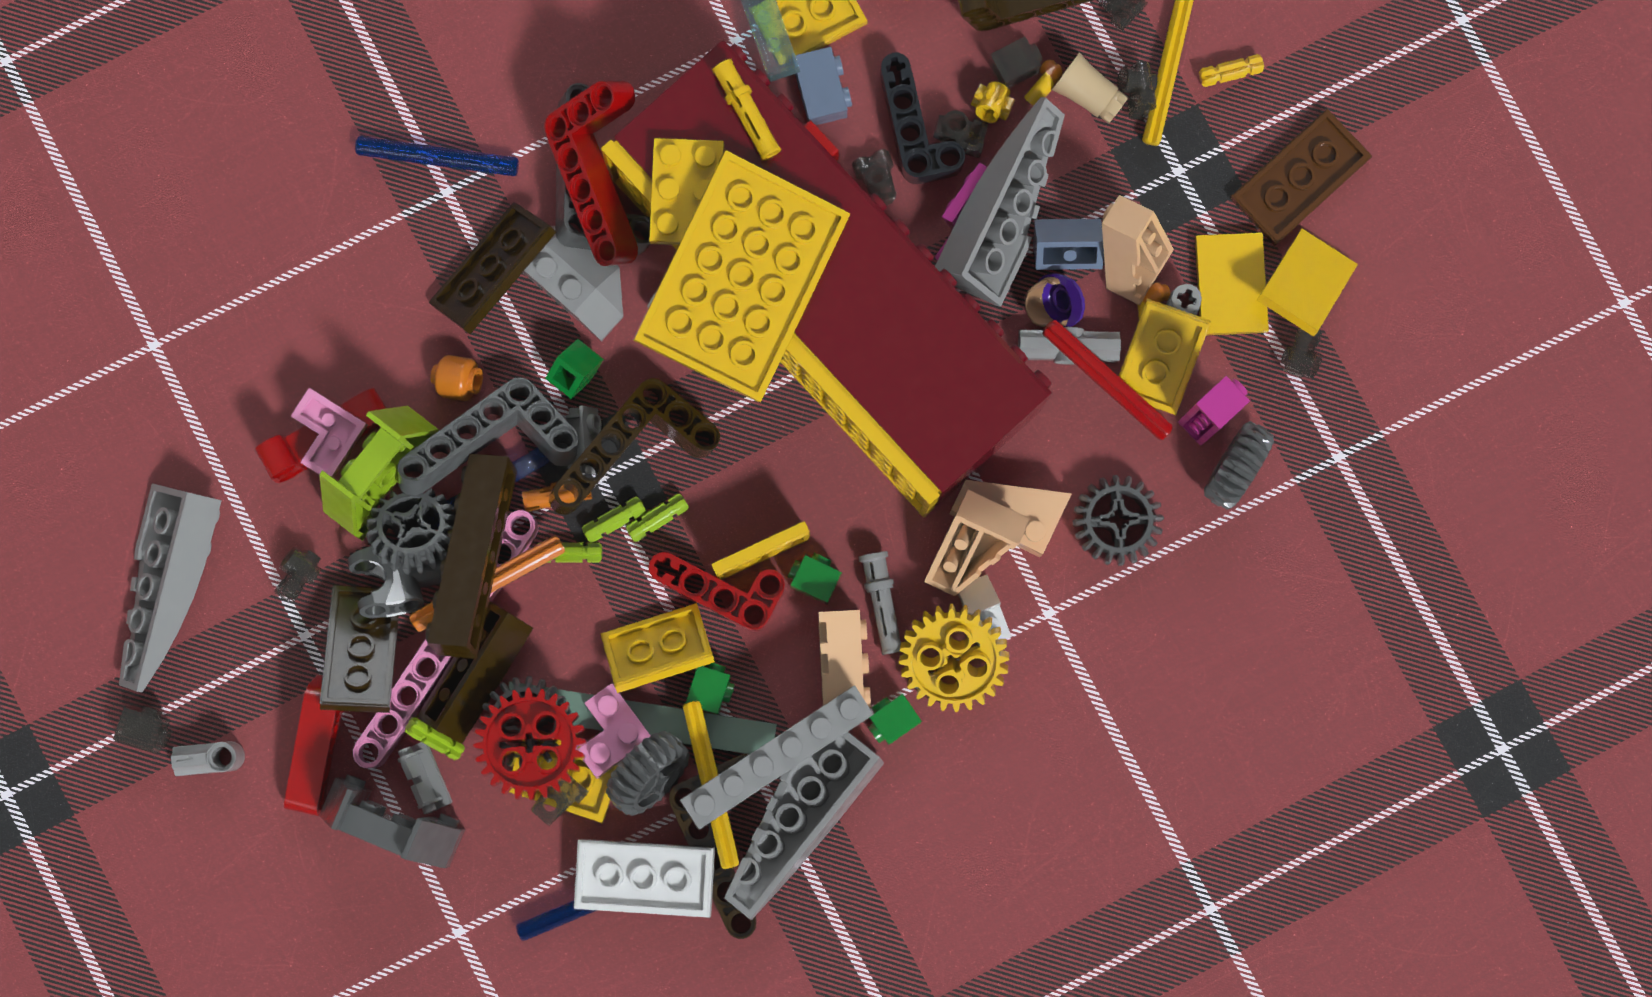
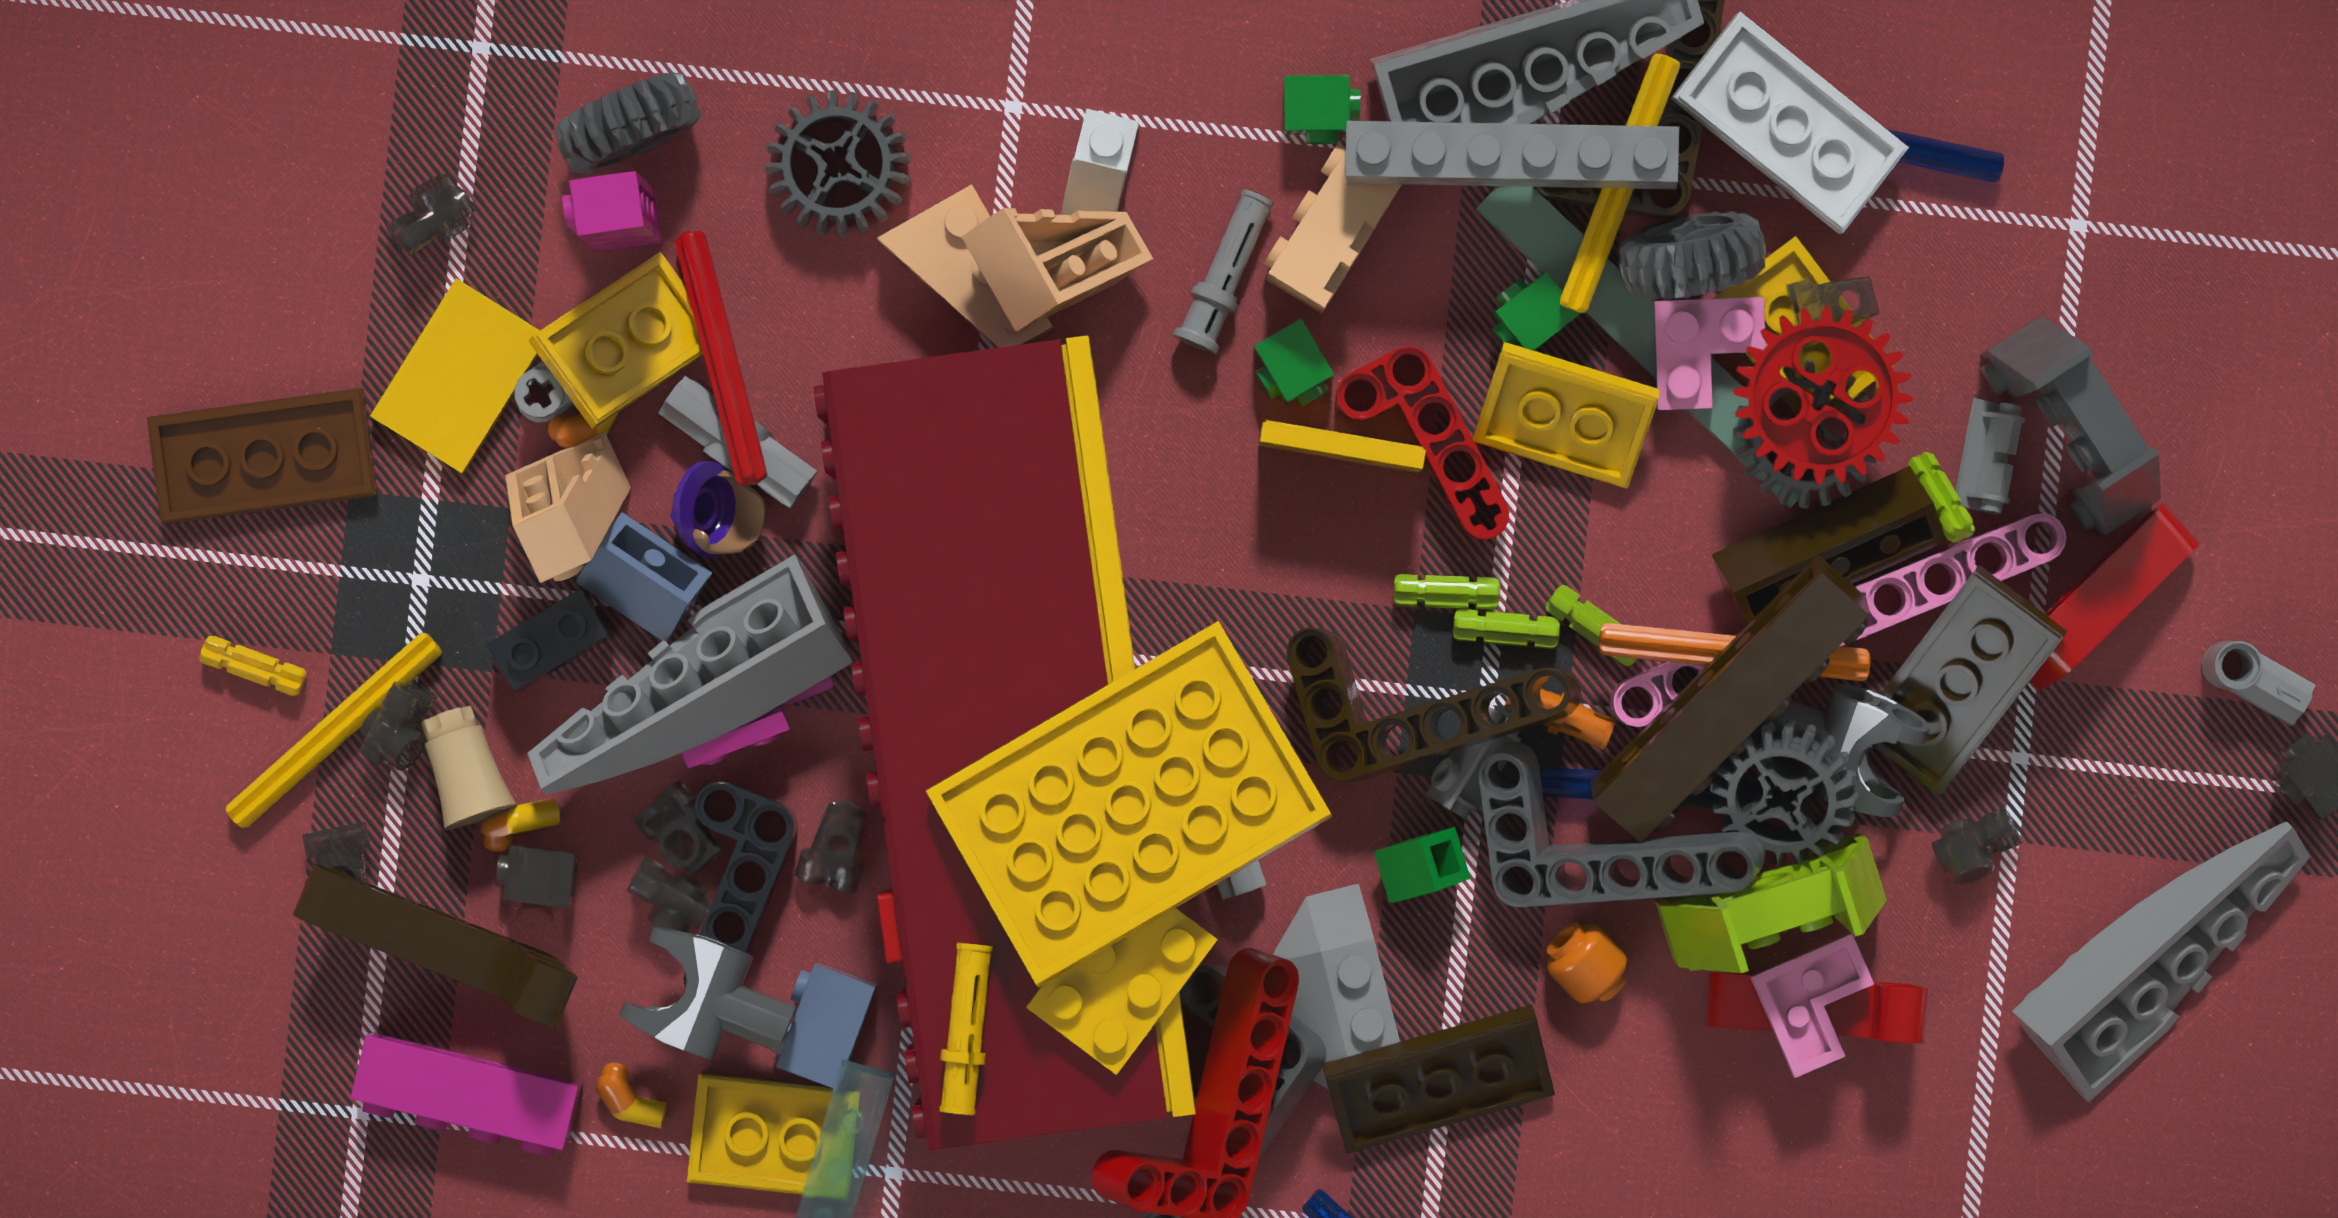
camera: 140 degrees left, 5 degrees up
(886, 54) = (712, 999): none -> dark grey connector
(938, 97) = (676, 901): none -> clear smoke plate
(971, 681) = (1183, 130): yellow gear -> none
(992, 102) = (608, 842): yellow gear -> none
(1093, 181) = (550, 640): none -> black brick
(1307, 282) = (360, 304): yellow tile -> none

